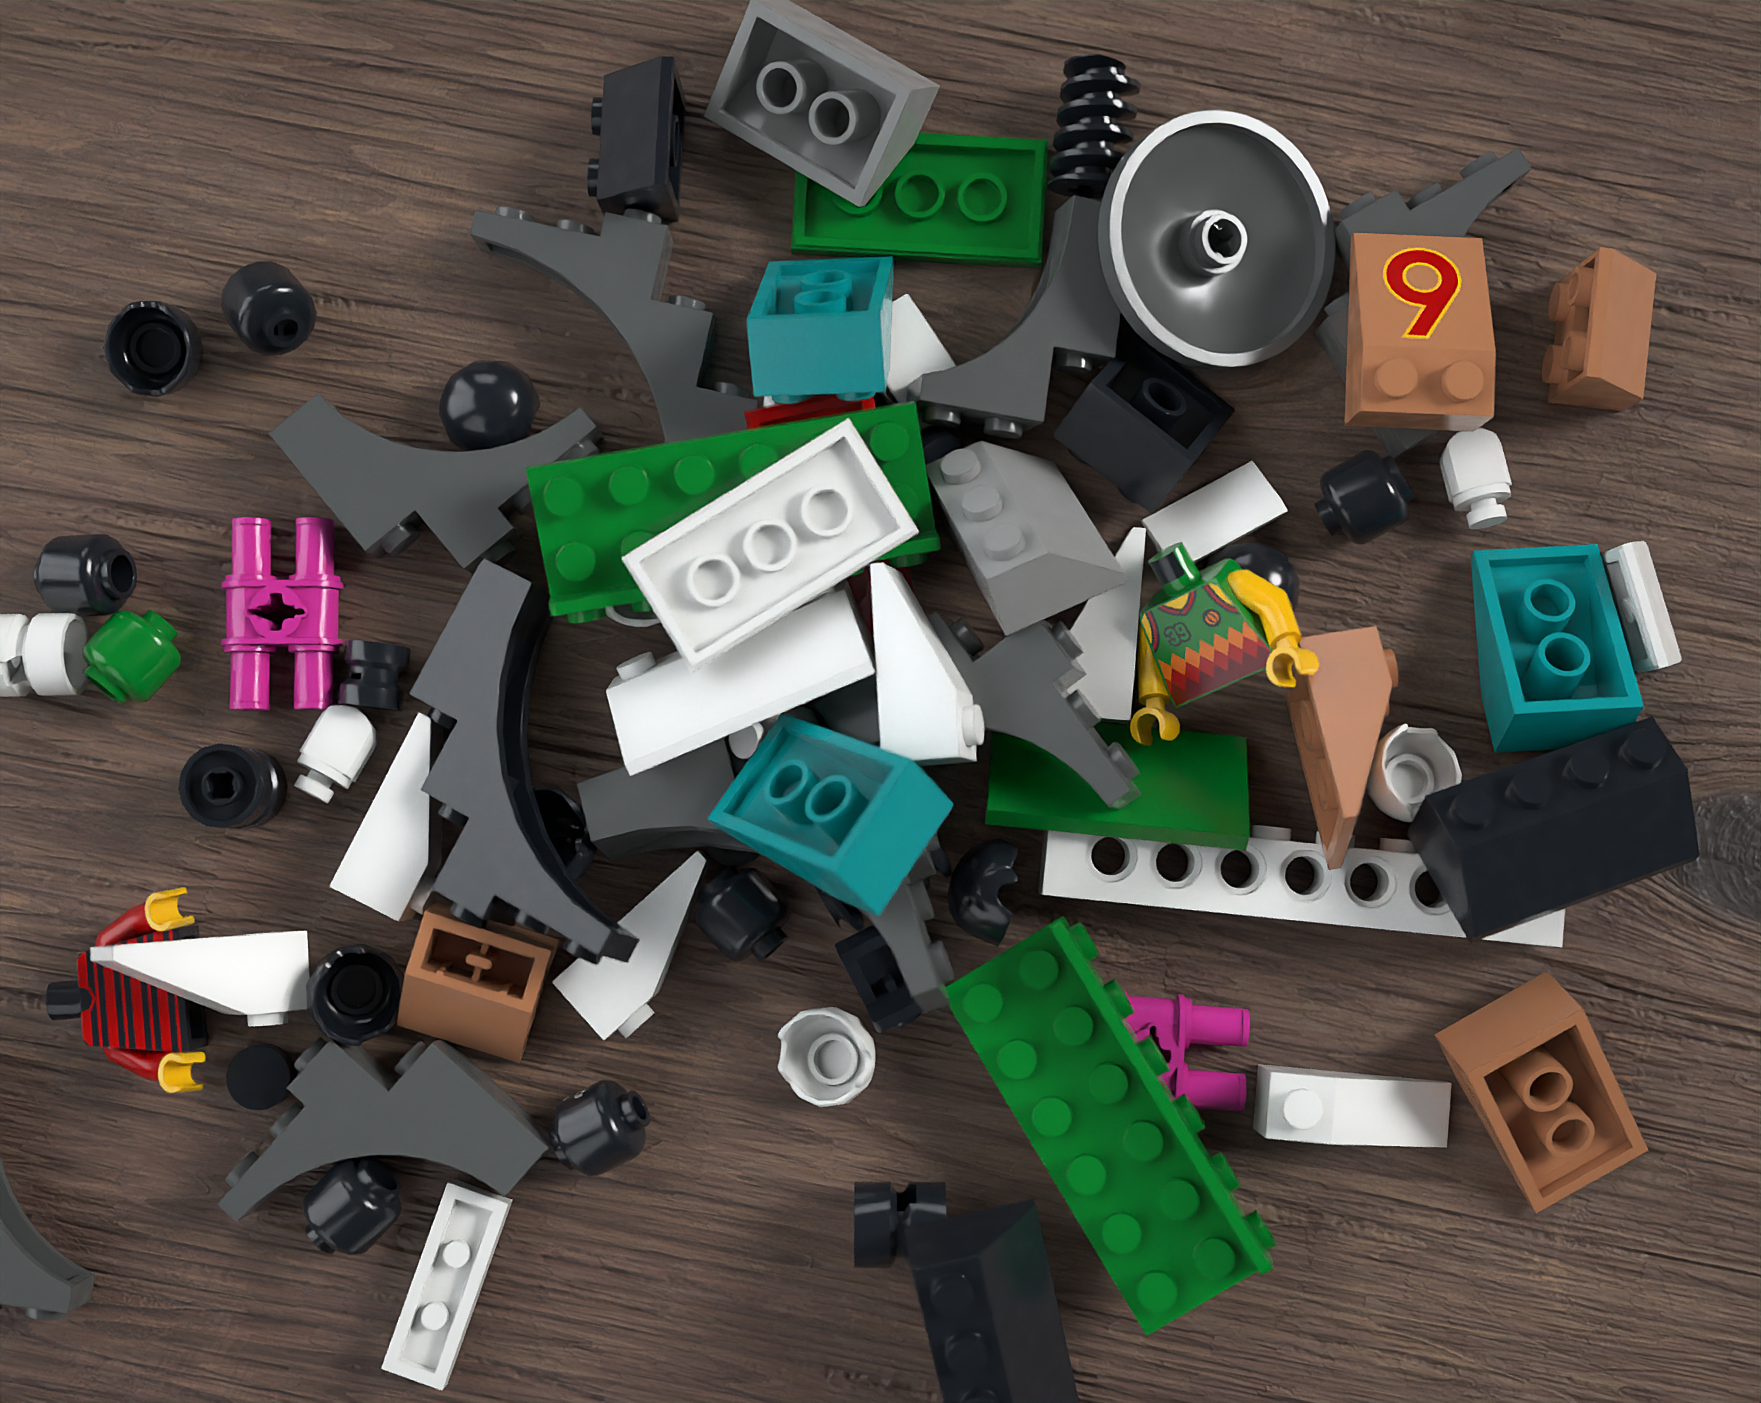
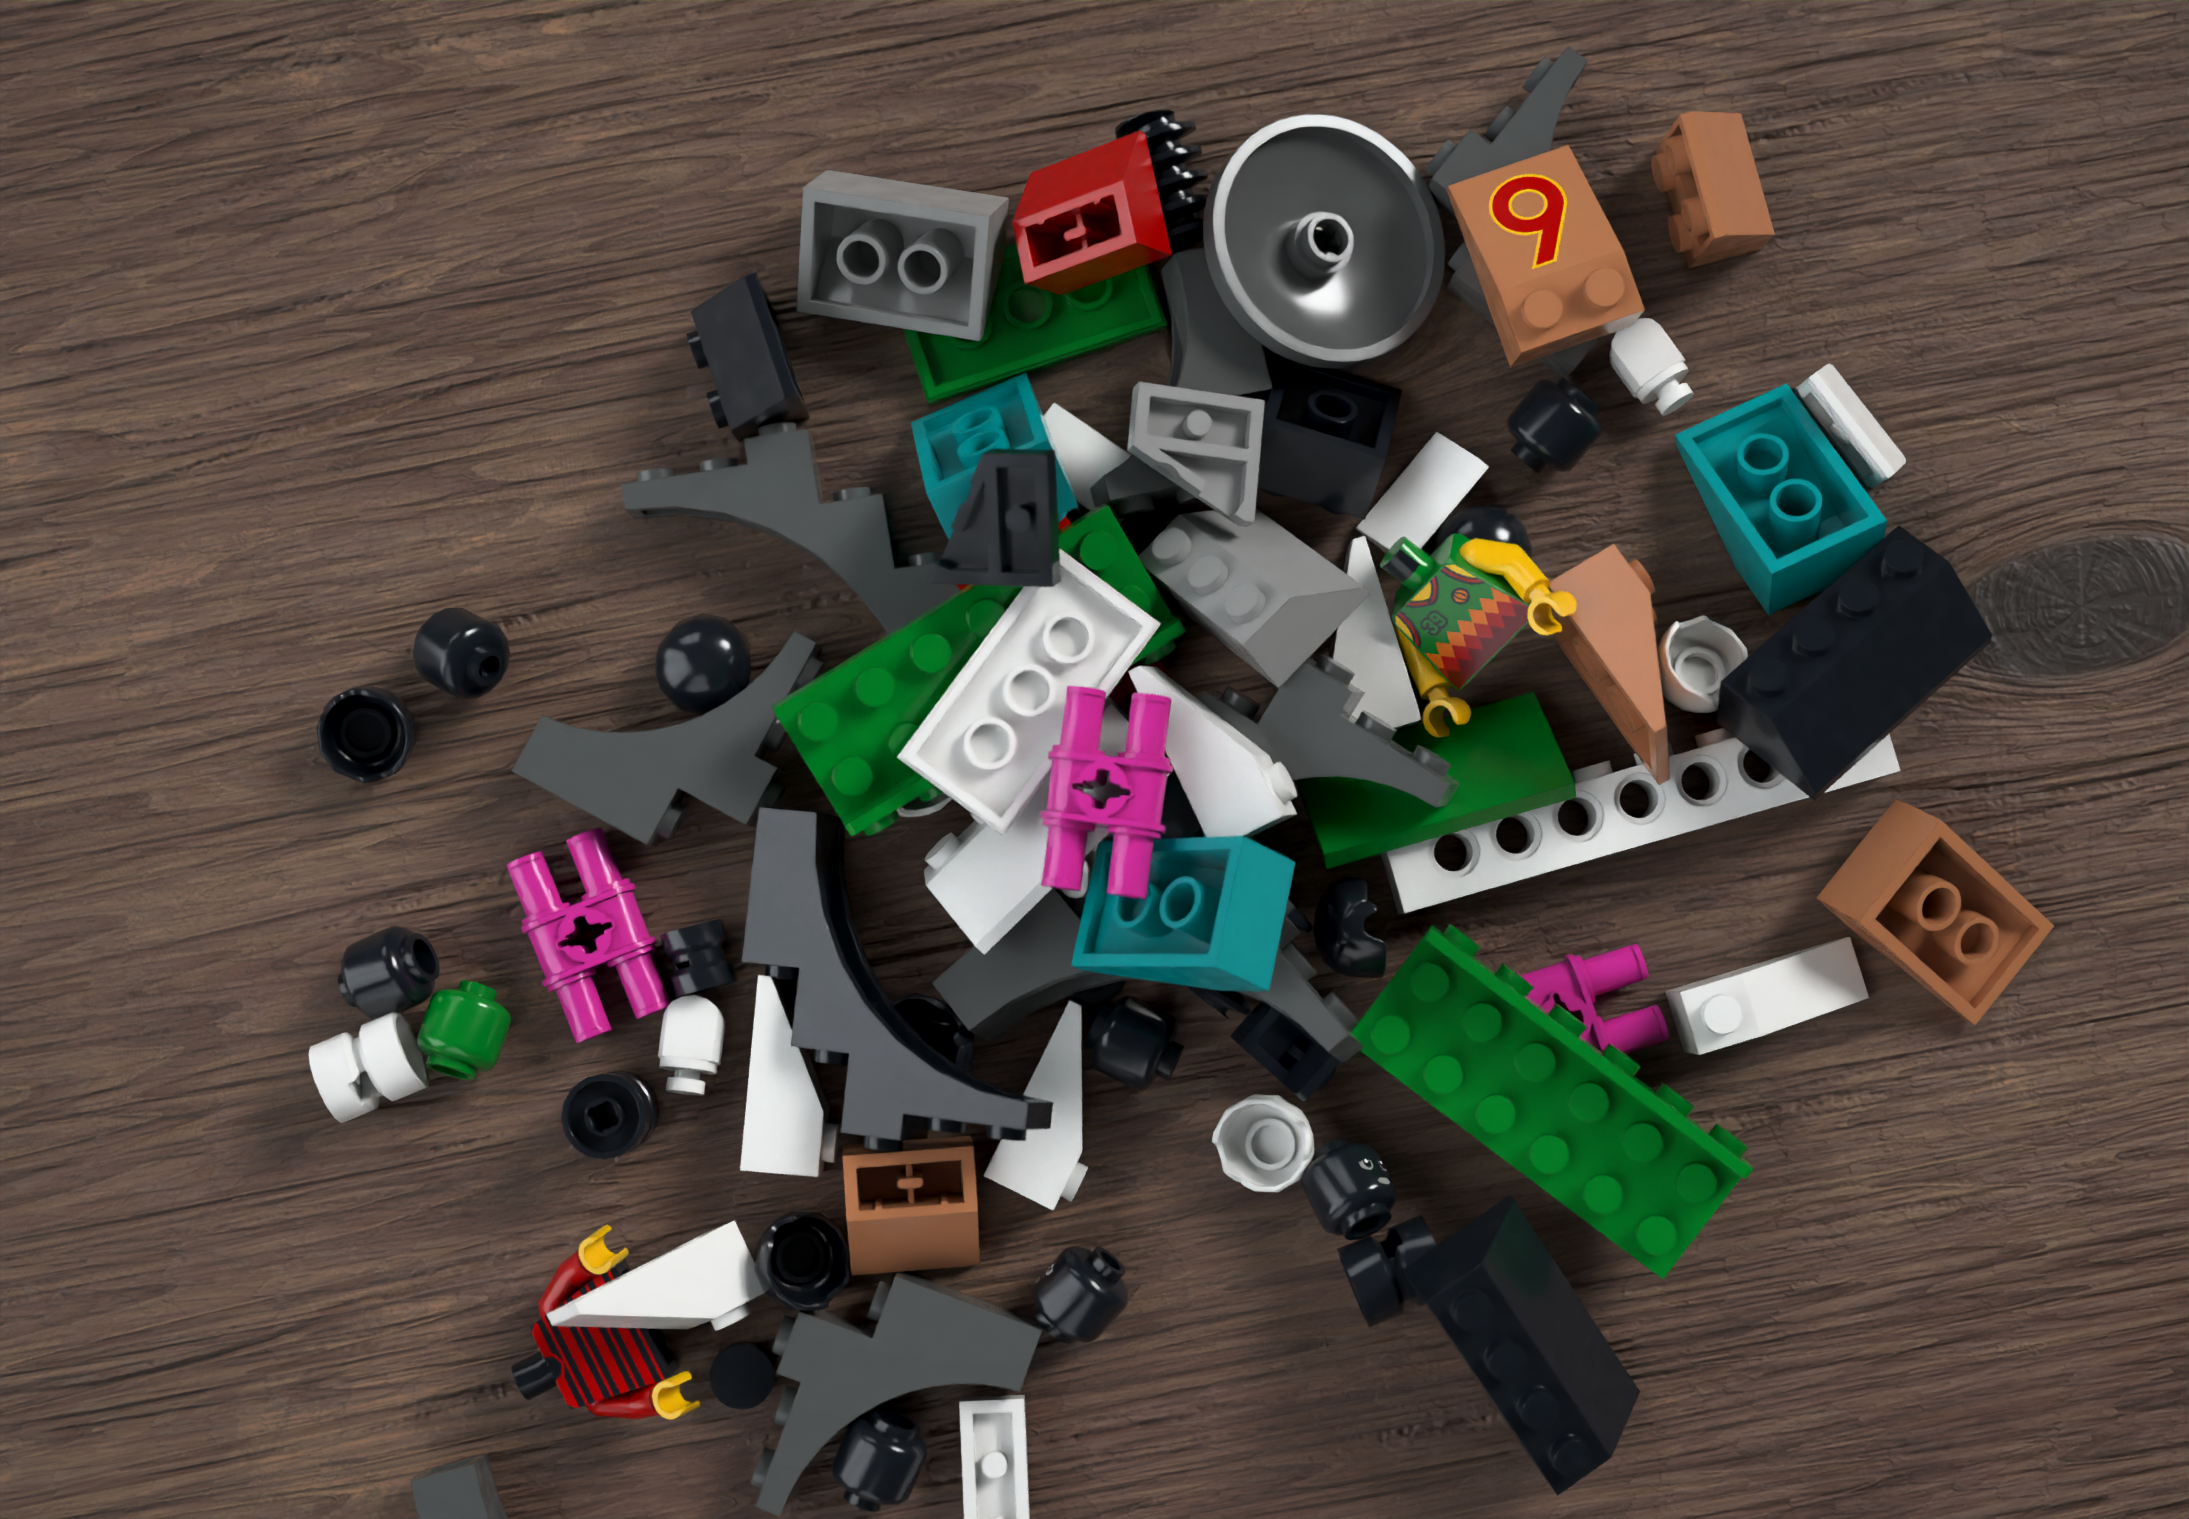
camera: 25 degrees left, 0 degrees up
(790, 635) = (1082, 766): none -> dark pink pin
(809, 378) = (1007, 524): none -> black wing
(887, 1131) = (1349, 1189): none -> black head
(1007, 133) = (1091, 217): none -> red slope
(1025, 380) = (1201, 444): none -> light grey wing

